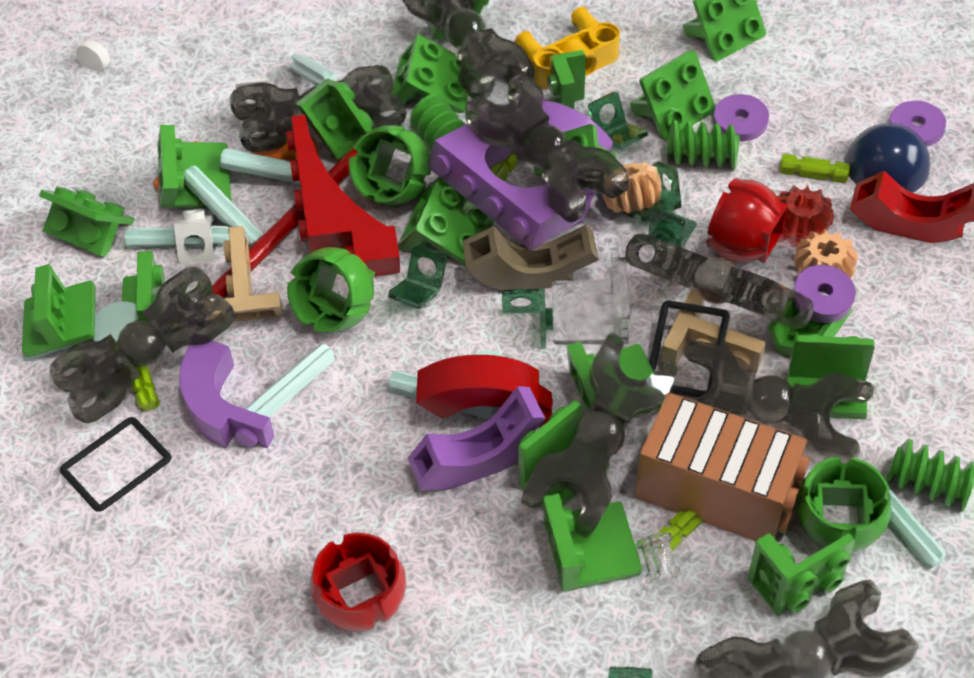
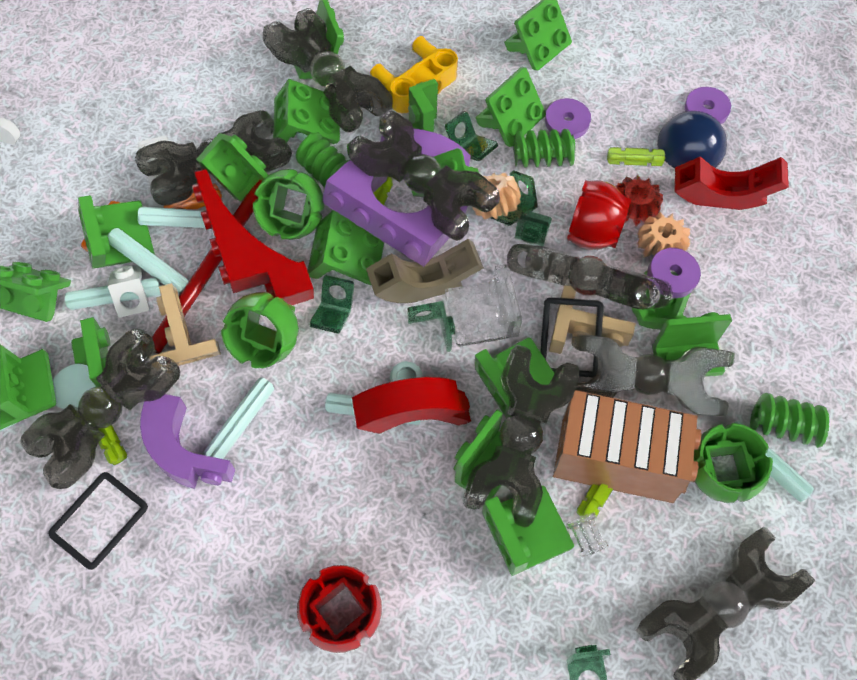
camera: 15 degrees left, 10 degrees up
(311, 70) = (202, 123): light aqua axle -> none
(464, 457) = (419, 458): medium lavender arch -> none
(790, 584) = (692, 540): bright green bracket -> none

